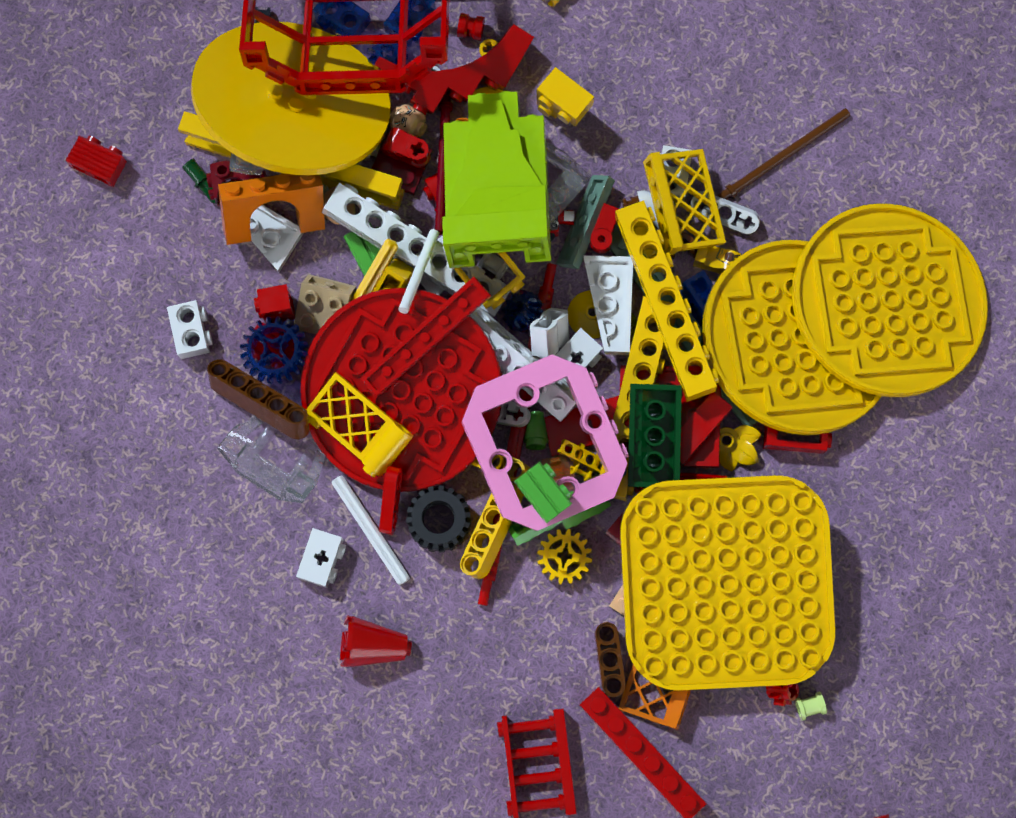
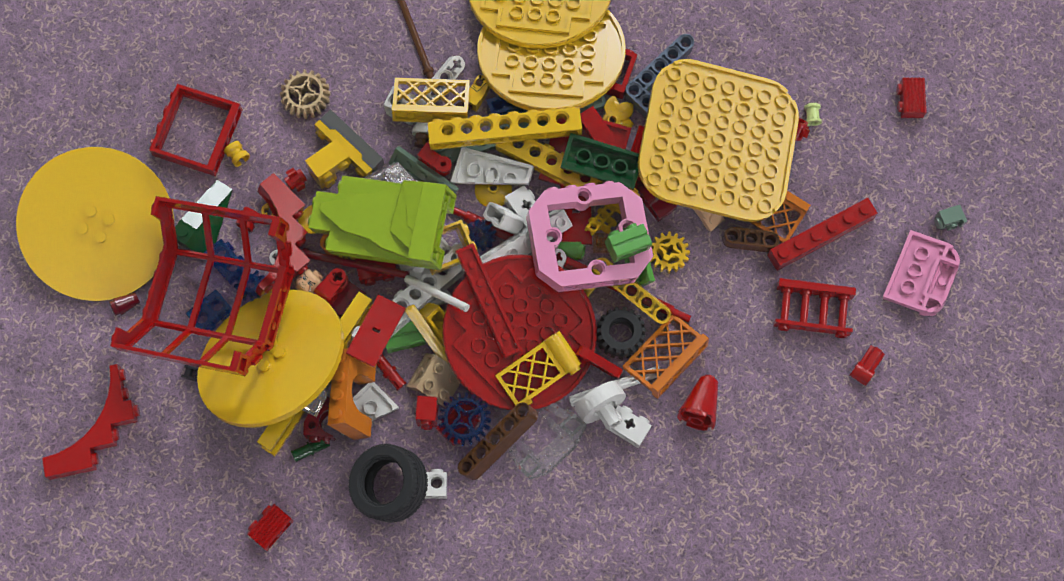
camera: 80 degrees left, 5 degrees down
(168, 252) = (362, 483): none -> black tyre
(320, 248) = (390, 373): none -> red pin
(332, 208) = (368, 344): none -> red piece
(334, 515) = (602, 405): none -> white piece
(419, 605) = (680, 363): none -> orange fence
(537, 67) = (295, 179): none -> red gear
(601, 119) = (361, 154): none -> piece
(644, 48) = (318, 99): none -> tan gear
(810, 473) = (651, 73): none -> sand blue beam

